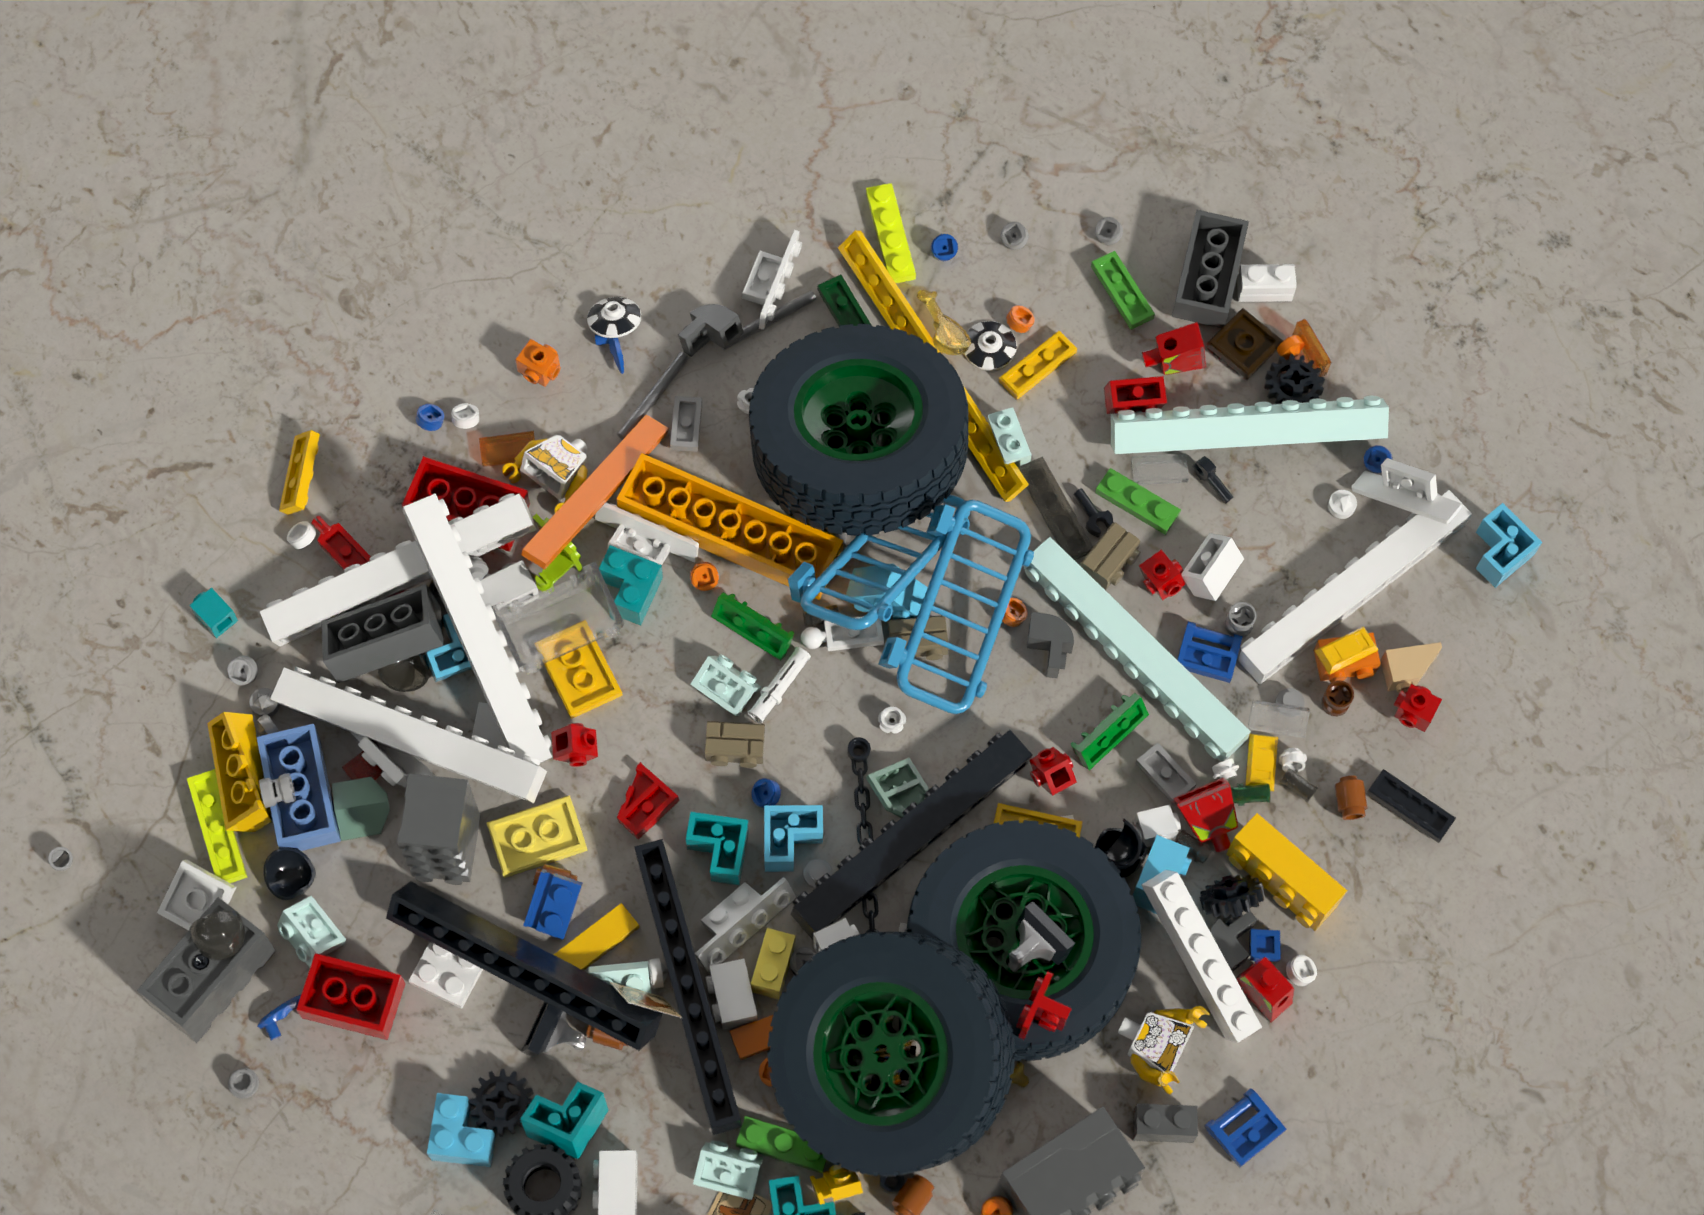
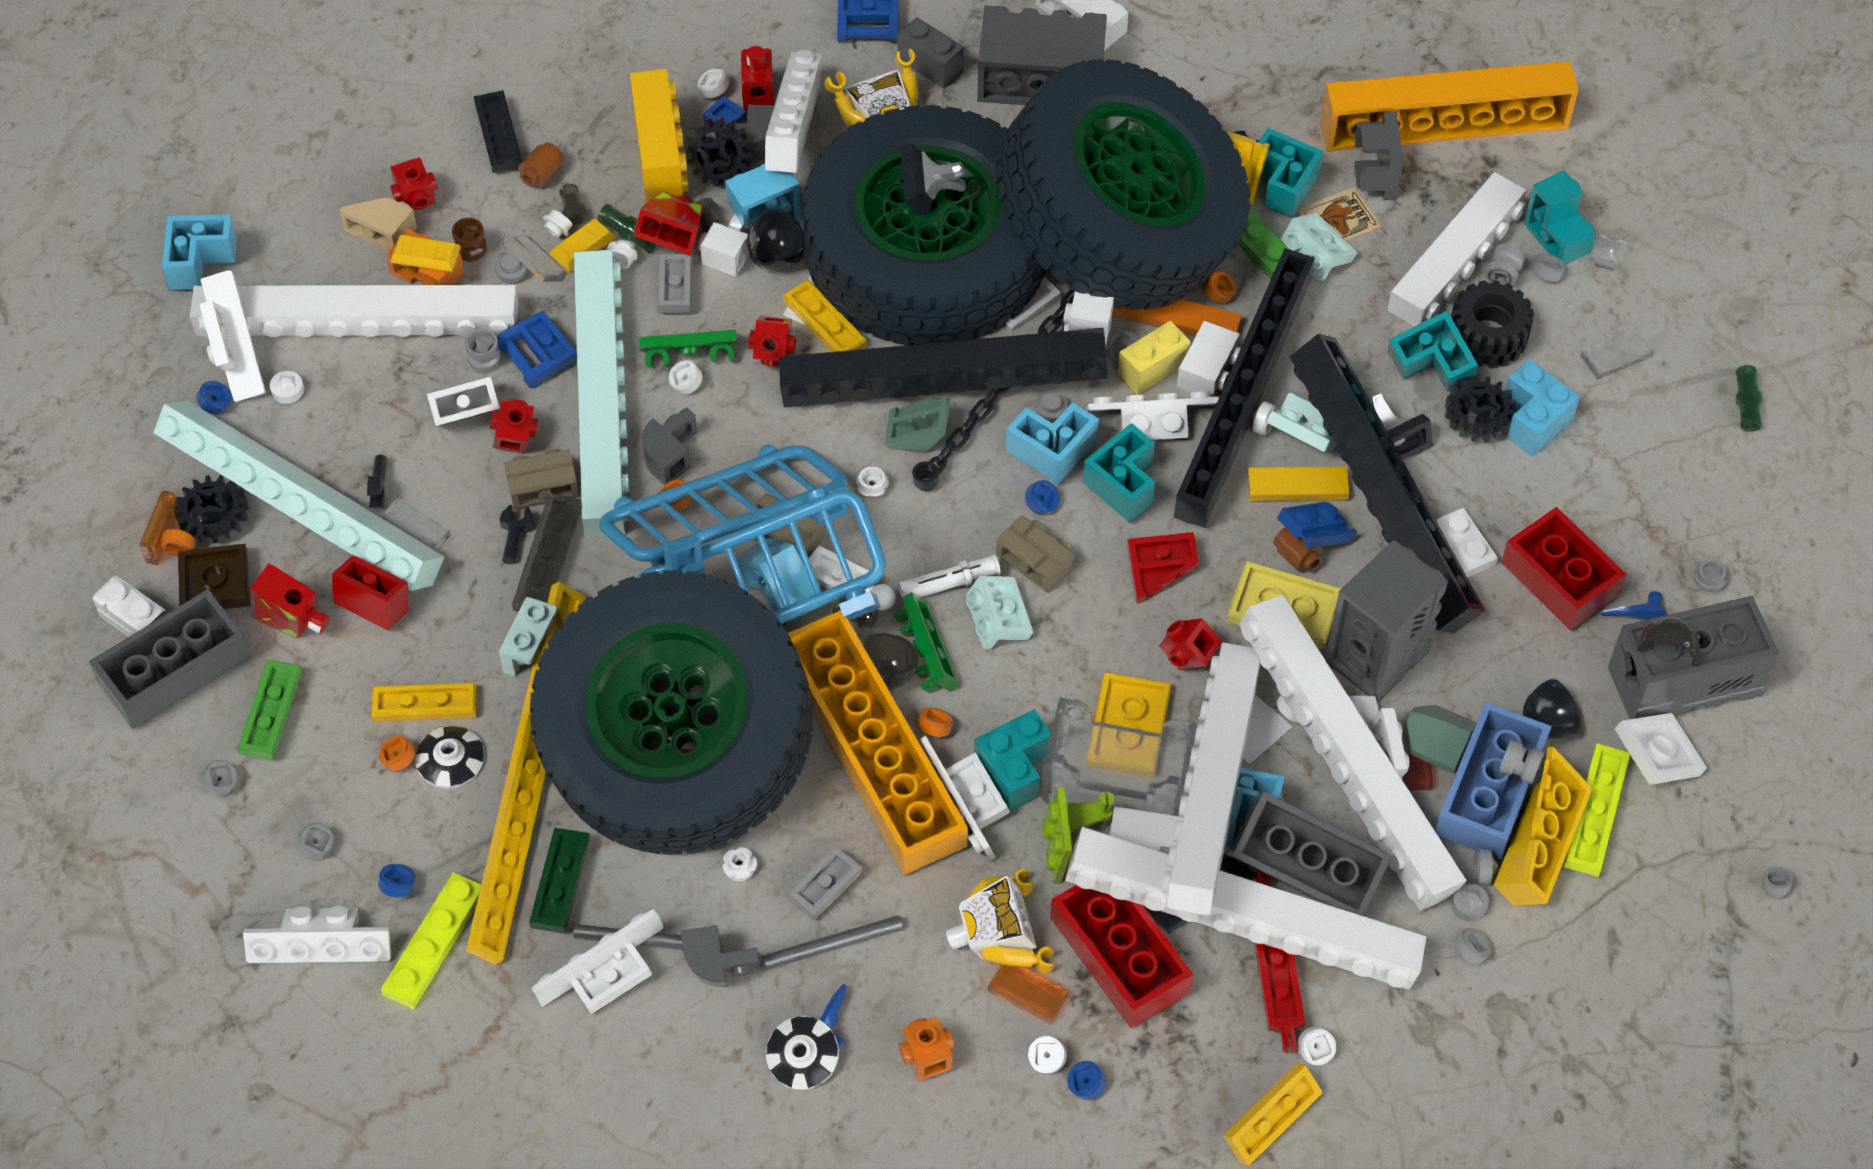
camera: 140 degrees left, 10 degrees down
(213, 612) = (1466, 1023): teal brick -> none
(309, 930) = (1563, 654): light aqua bracket -> none
(593, 492) = (981, 847): orange tile -> none
(645, 999) = (1296, 379): sticker -> none
(762, 591) = (893, 658): none -> clear smoke helmet
(949, 335) = (481, 779): clear yellow piece -> none
(959, 188) = (318, 937): none -> white bracket
(1048, 1012) = (976, 115): red bracket -> none
(1089, 705) = (685, 377): none -> white tile
(1137, 501) = (463, 515): bright green plate -> none

